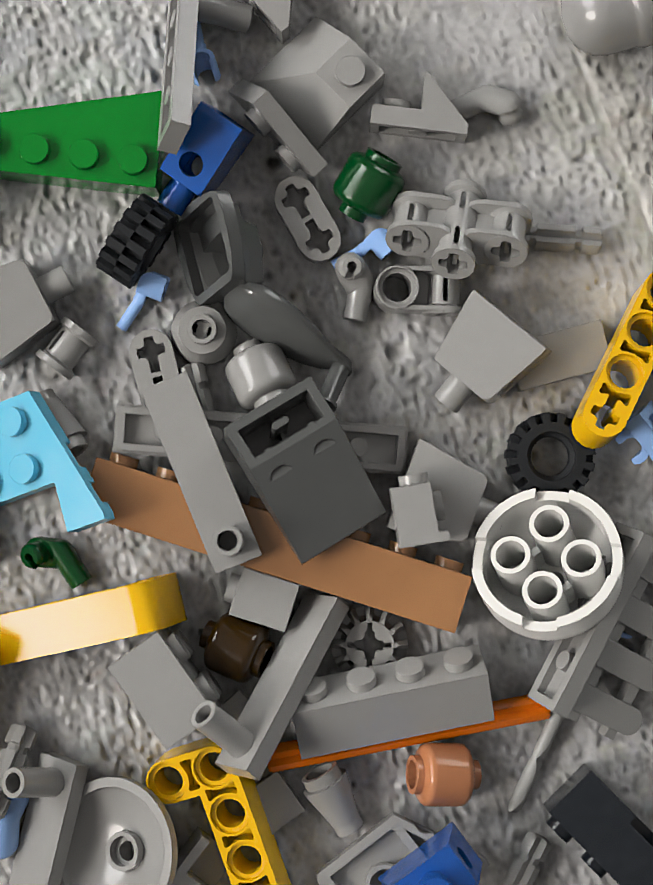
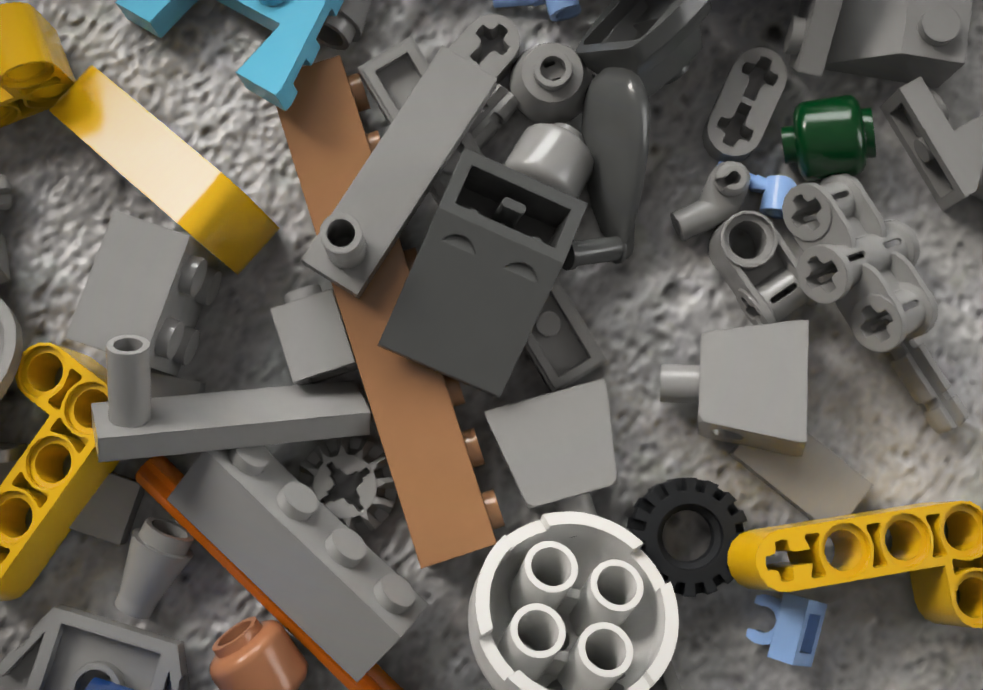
camera: 60 degrees right, 5 degrees down
(55, 554) = (213, 96): dark green arm -> none
(236, 647) = (241, 345): dark brown head -> none
(417, 511) = (524, 428): light grey brick -> none

